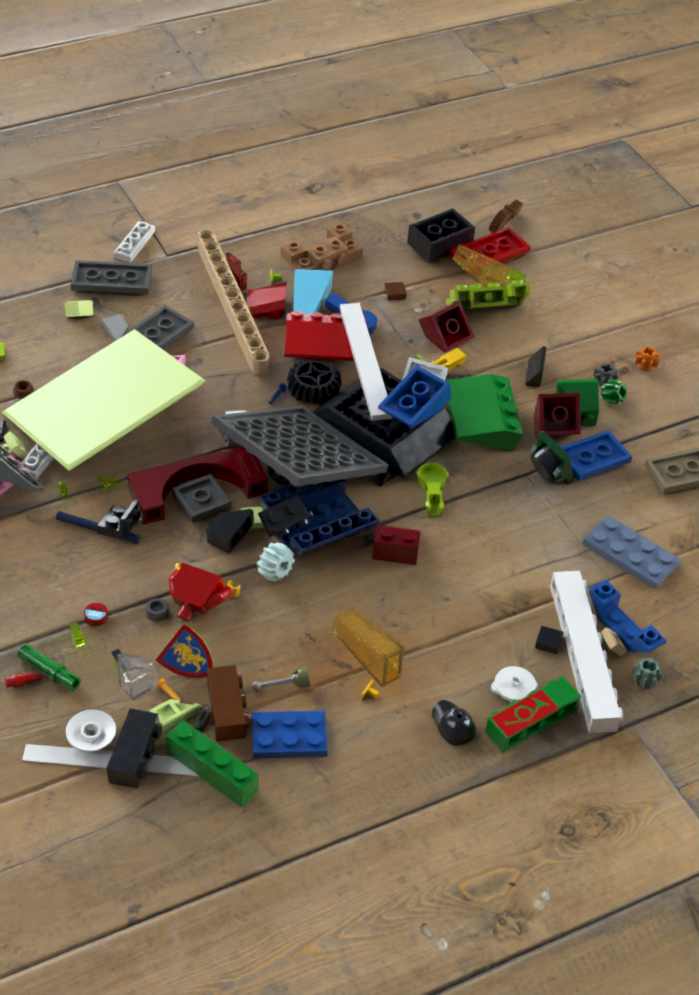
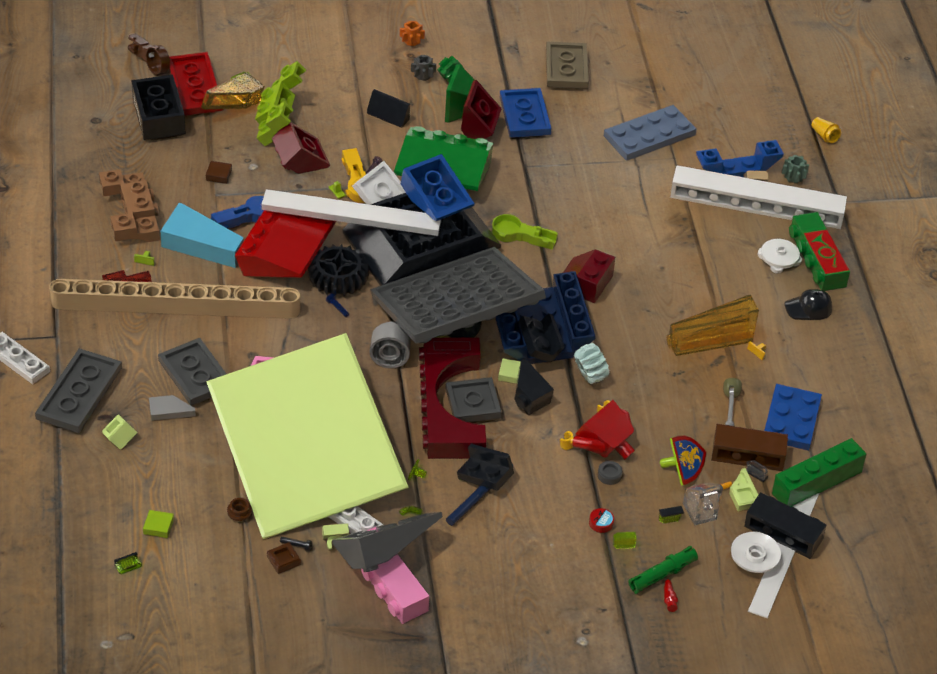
camera: 70 degrees left, 0 degrees up
(268, 301) = (189, 266): red slope -> none
(549, 639) = (735, 217): black tile -> none
(551, 459) = (531, 136): piece -> none

